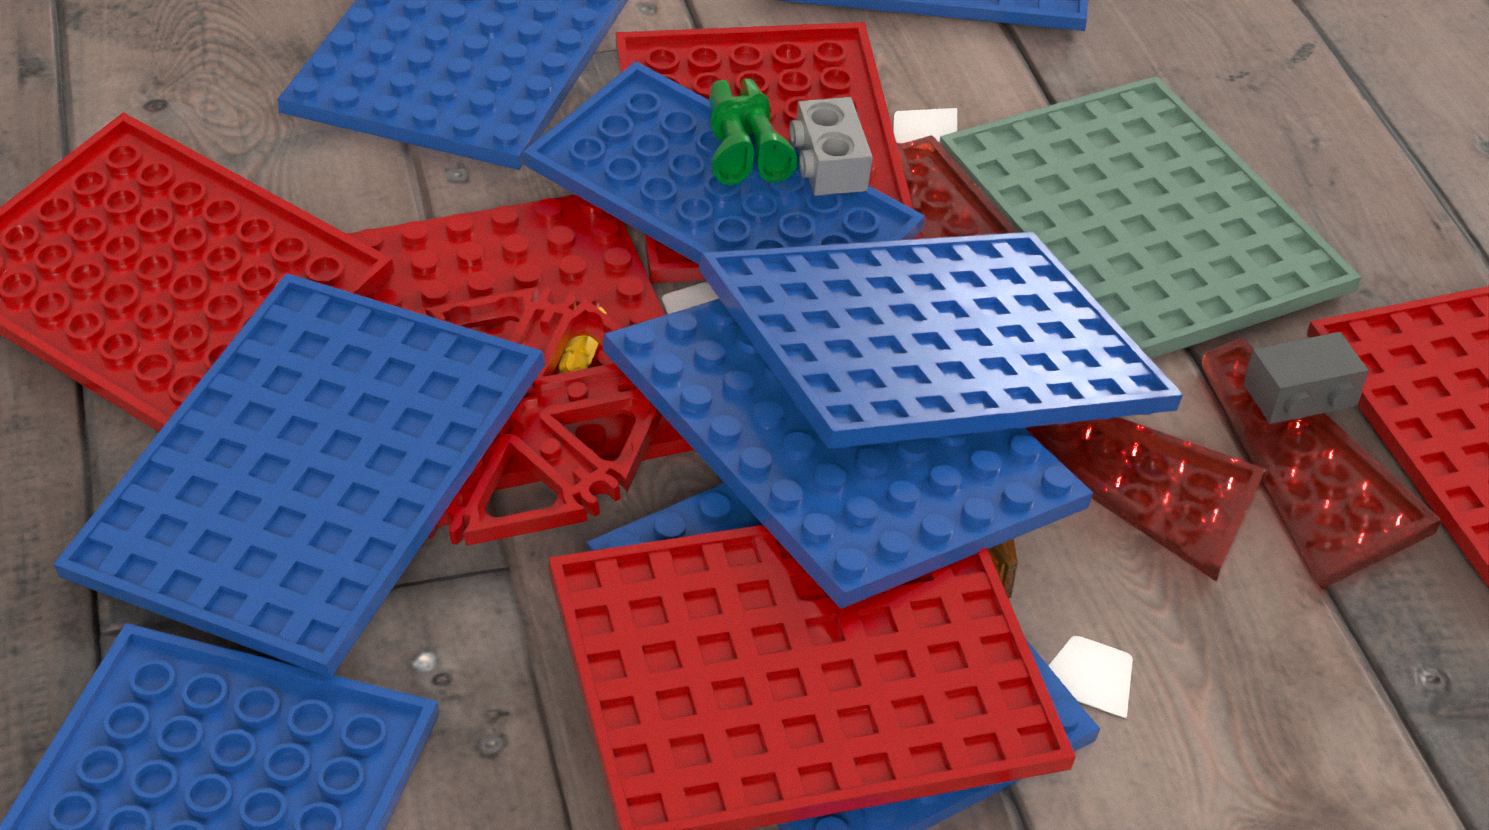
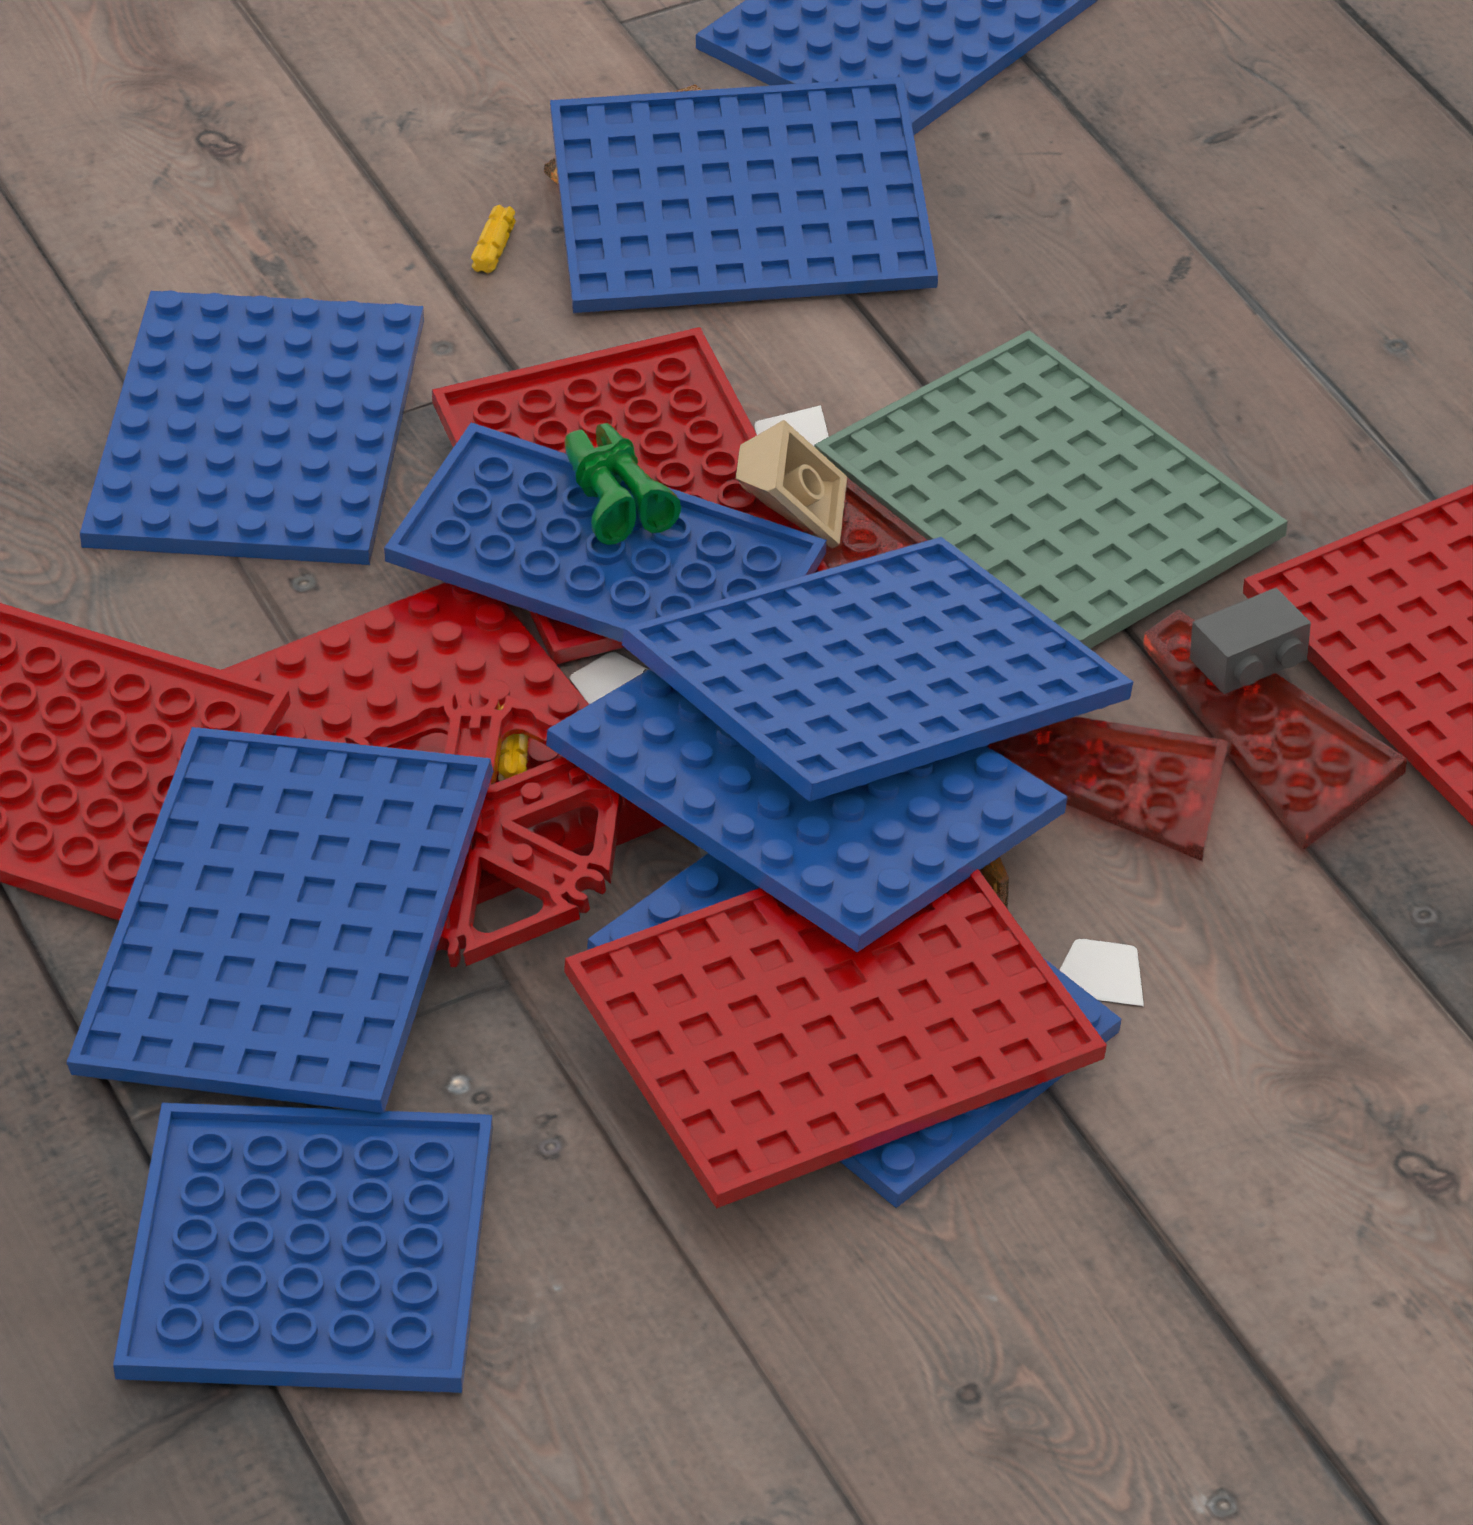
camera: 10 degrees left, 0 degrees up
(831, 146) = (712, 482): light grey brick -> none
(912, 160) = (794, 481): none -> tan slope

